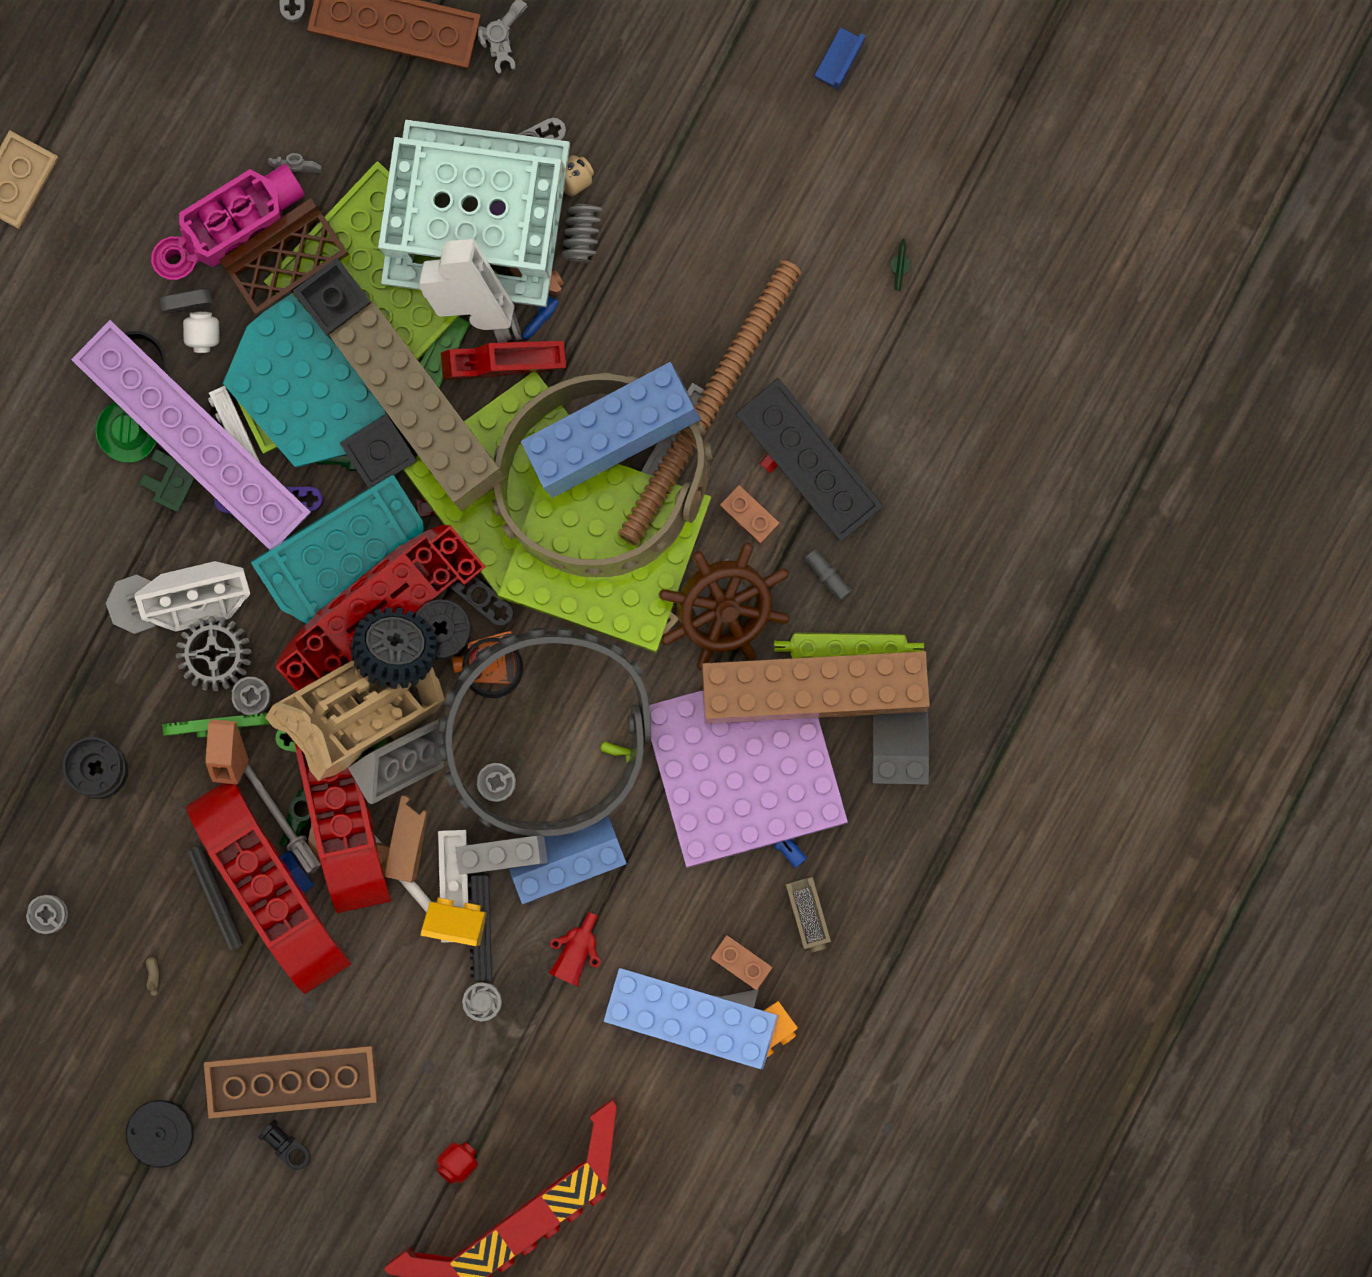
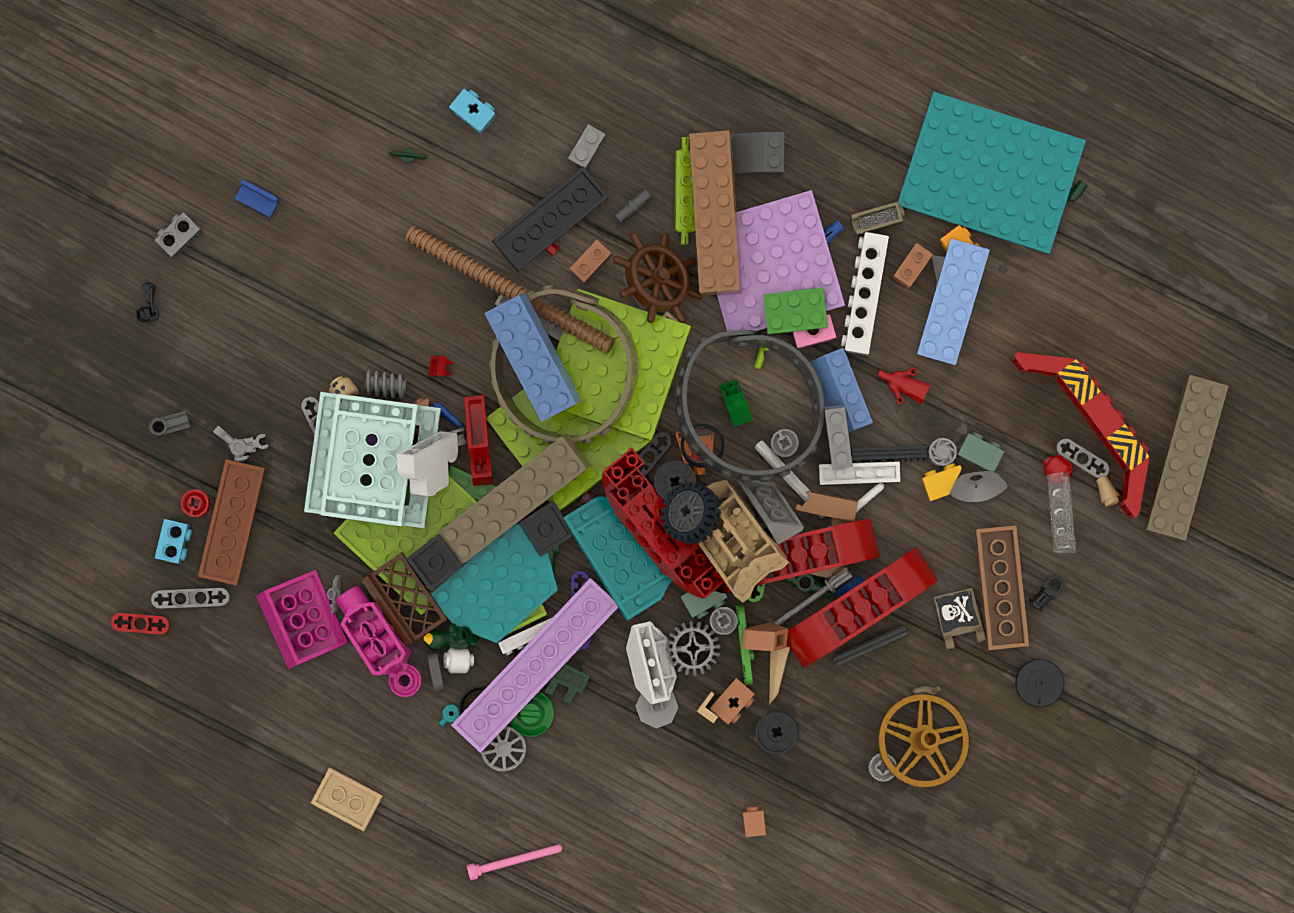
camera: 85 degrees left, 0 degrees up
(79, 394) = (503, 749): none -> light grey wheel
(82, 970) = (923, 740): none -> pearl gold wheel
(124, 670) = (706, 712): none -> tan panel
(125, 316) = (445, 714): none -> teal piece
(154, 710) = (734, 690): none -> nougat brick
(186, 770) = (777, 665): none -> tan bar
(231, 326) = (455, 637): none -> dark green animal
(255, 1022) = (958, 616): none -> flag
(260, 118) = (301, 619): none -> dark pink slope
(266, 664) = (699, 606): none -> sand green slope
(394, 1166) = (1061, 513): none -> clear slope
(423, 1232) = (1108, 493): none -> tan cone
(431, 1064) = (987, 487): none -> light grey piece
(438, 999) = (940, 484): none -> yellow slope
(454, 922) = (887, 470): yellow slope -> none
(465, 774) = (776, 462): none -> white axle
(466, 1219) = (1072, 445): none -> light grey beam
(480, 1054) = (980, 452): none -> sand green brick
(552, 714) = (735, 403): none -> green slope
(607, 305) = (438, 366): none -> red tile
(652, 840) = (804, 339): none -> bright pink brick
(678, 798) = (795, 311): none -> bright green plate
(772, 916) = (879, 245): none -> white brick
(842, 1188) = (1077, 191): none -> dark green arm
(872, 1074) = (991, 173): none -> teal plate
(911, 511) = (586, 146): none -> light grey plate
(966, 338) = (461, 108): none -> medium azure brick

